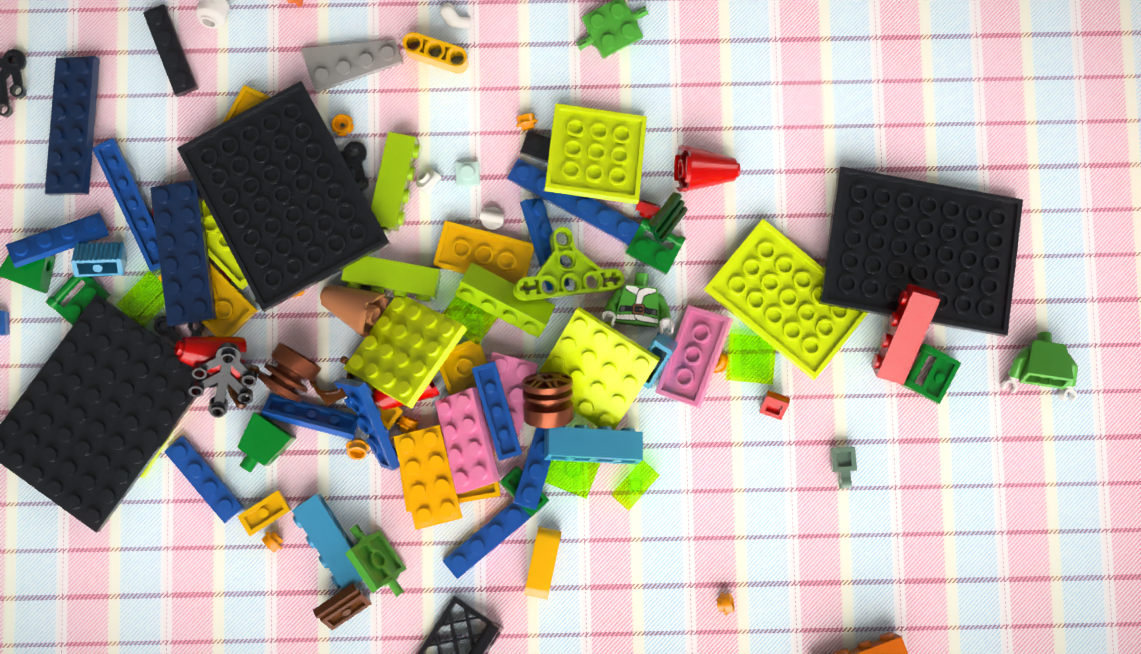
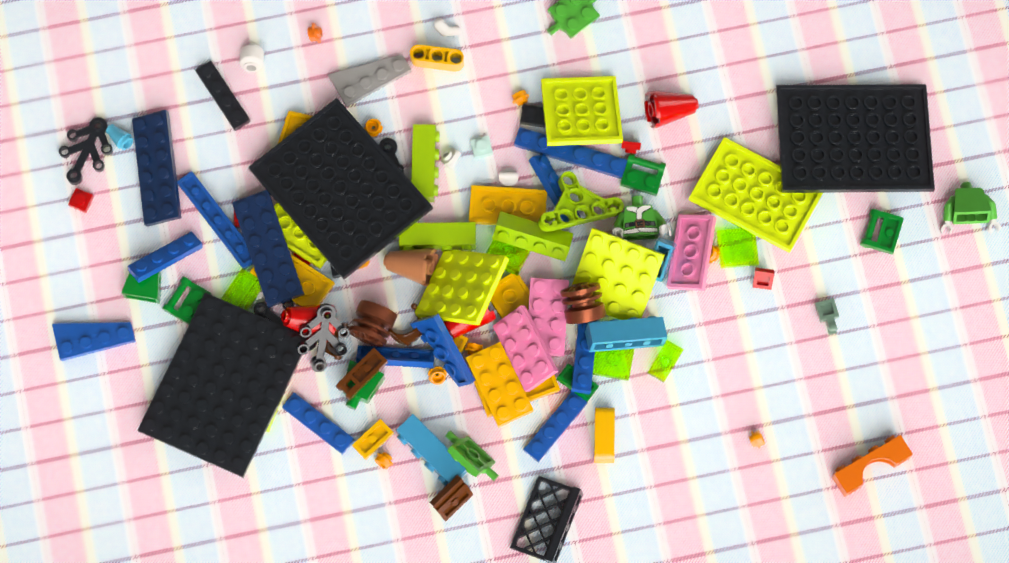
camera: 10 degrees left, 10 degrees down
(36, 79) = (121, 138): none -> medium azure cone
(99, 259) = (201, 266): dark azure brick -> none
(263, 434) = (362, 373): none -> reddish brown plate
(497, 411) = (544, 319): blue plate -> none
(668, 217) = (650, 145): dark green tile -> none
(905, 333) = (853, 201): brick -> none

